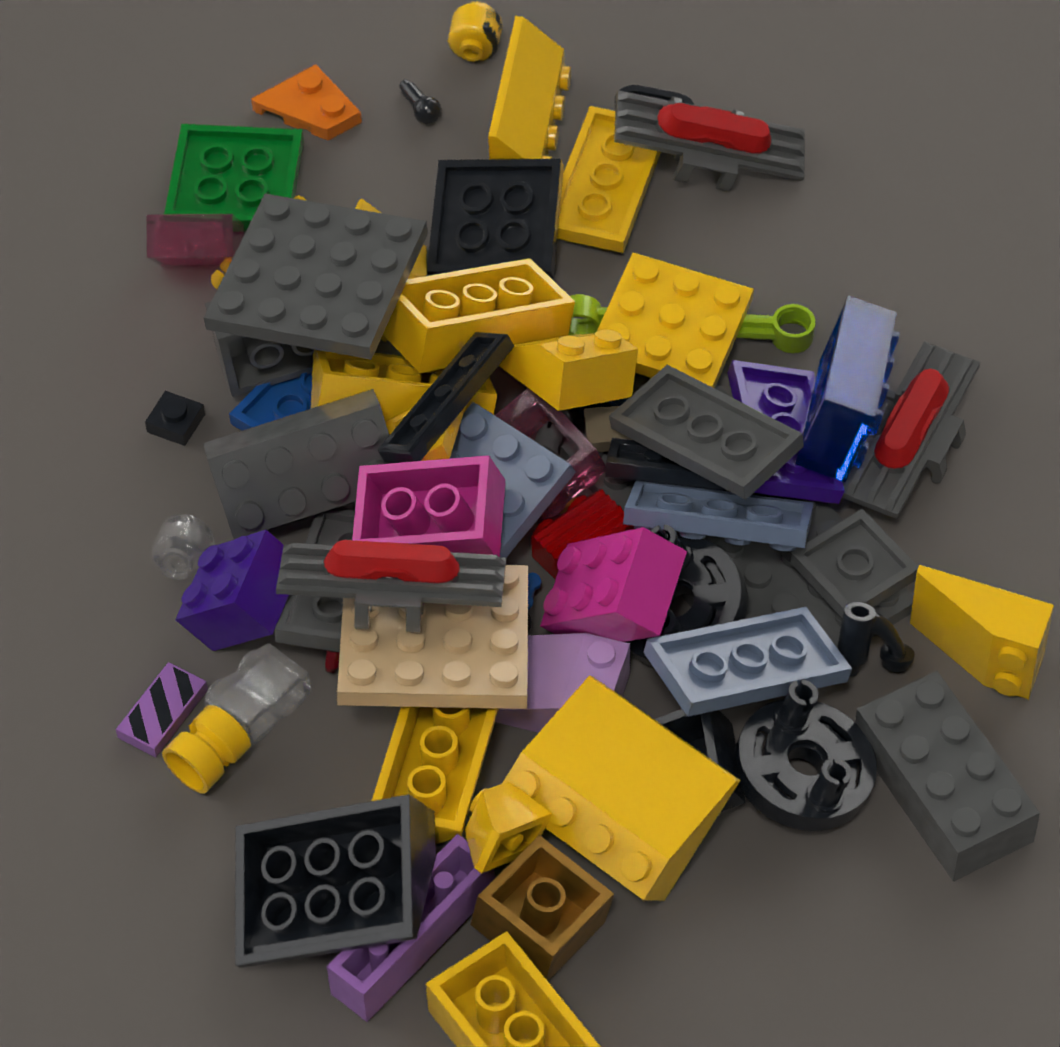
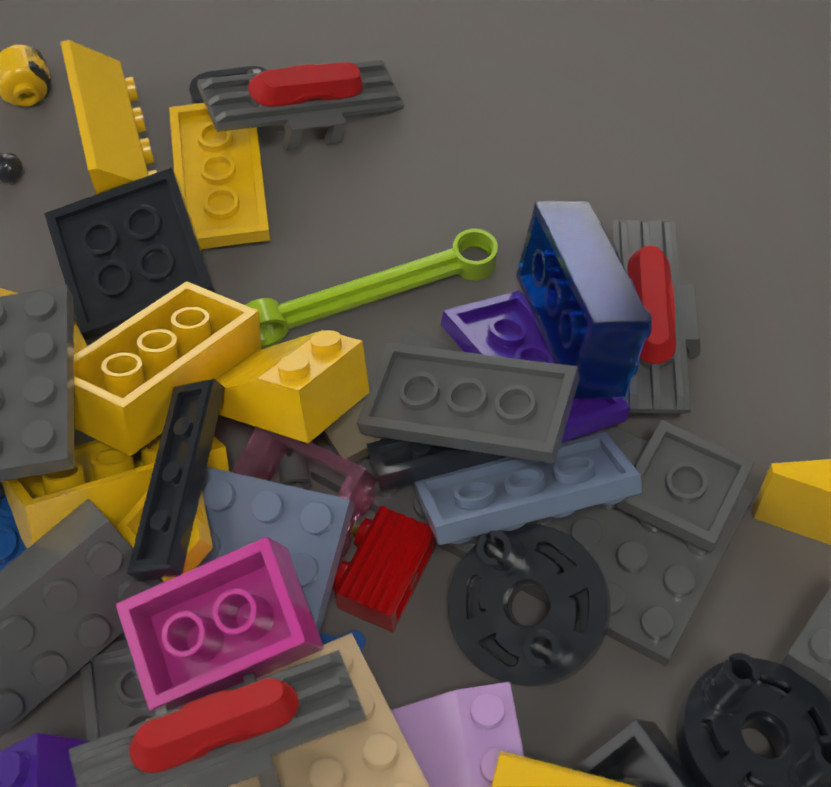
camera: 25 degrees left, 5 degrees up
(614, 586) = (469, 627): dark pink brick -> none
(677, 317) = (364, 288): yellow plate -> none
(746, 660) = (649, 655): sand blue plate -> none
(855, 638) = (733, 556): black plant -> none

